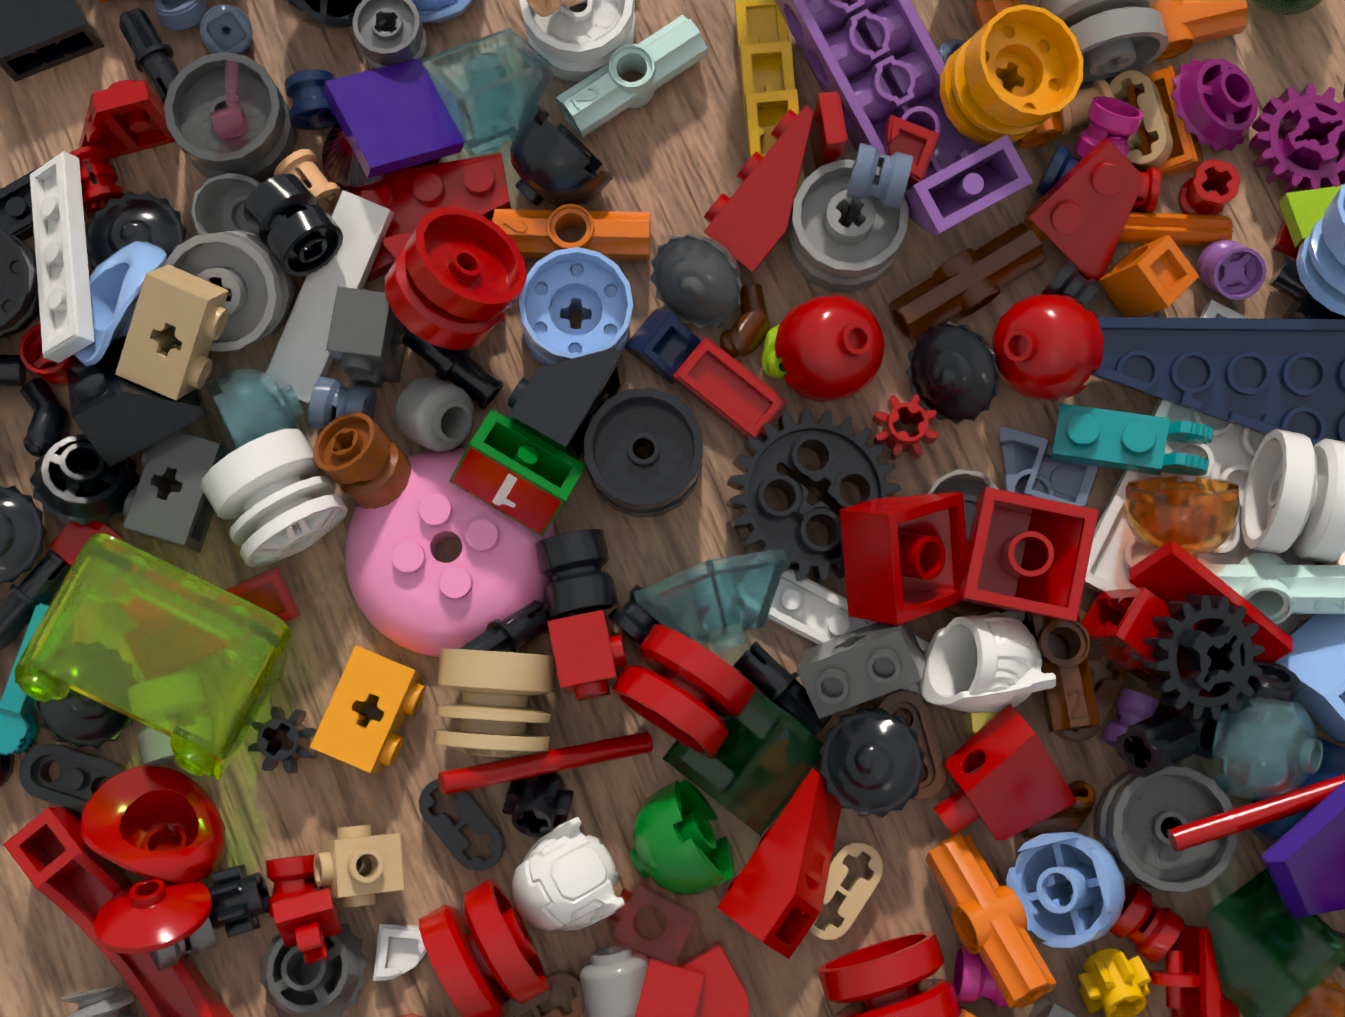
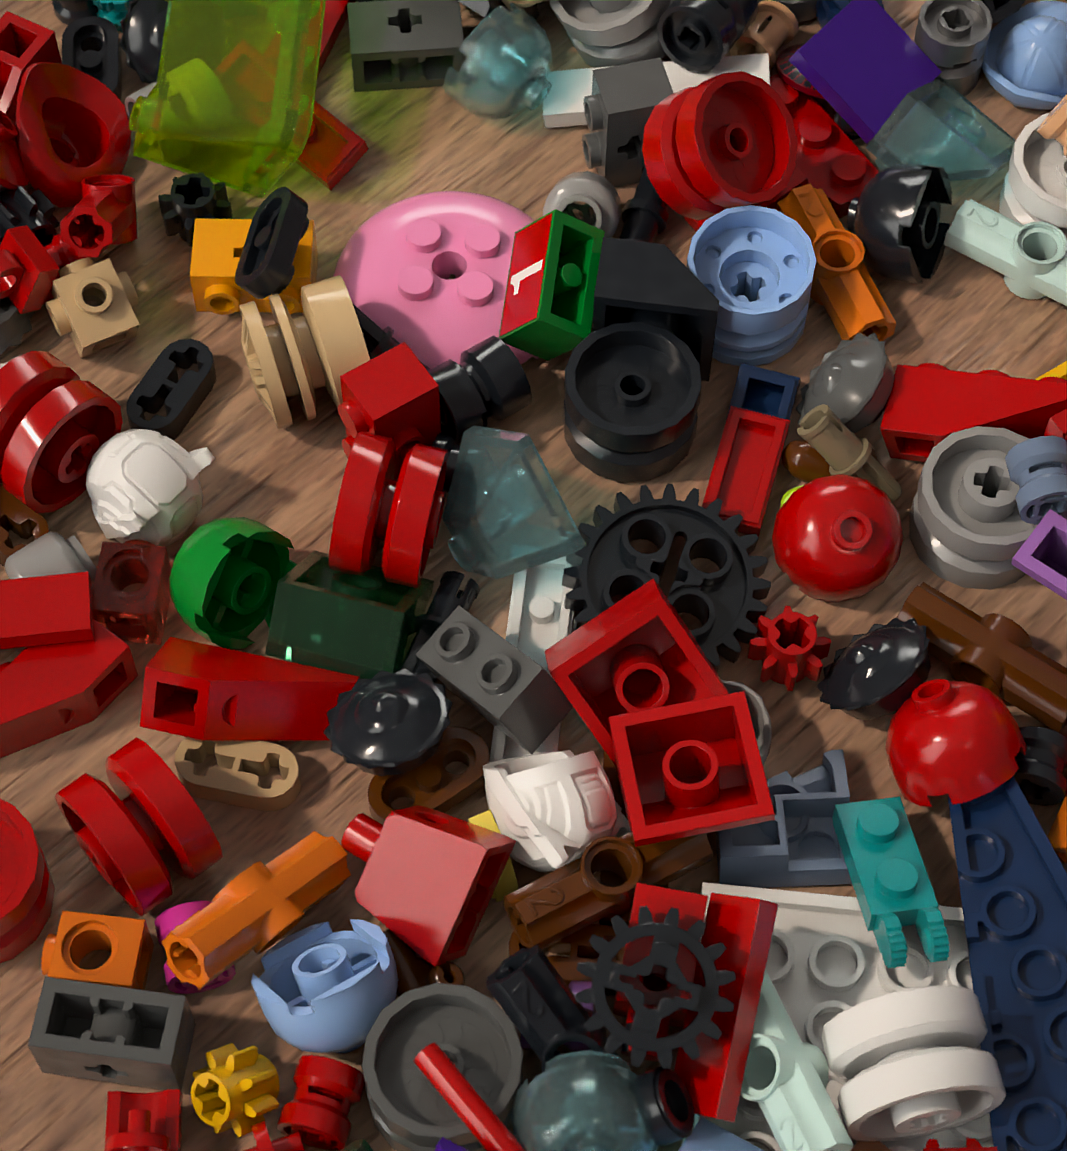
camera: 65 degrees right, 20 degrees down
(270, 829) = (103, 215): none -> red piece
(273, 497) = (431, 105): white wheel -> none
(333, 400) = (555, 147): sand blue wheel -> none
(362, 460) = (505, 156): dark orange wheel -> none
(380, 693) = (272, 244): none -> black plate
(538, 803) = (225, 434): black gear -> none
(544, 762) = (262, 421): red bar -> none
(764, 307) = (845, 450): none -> dark tan axle
(1190, 513) = (822, 948): clear orange cylinder -> none

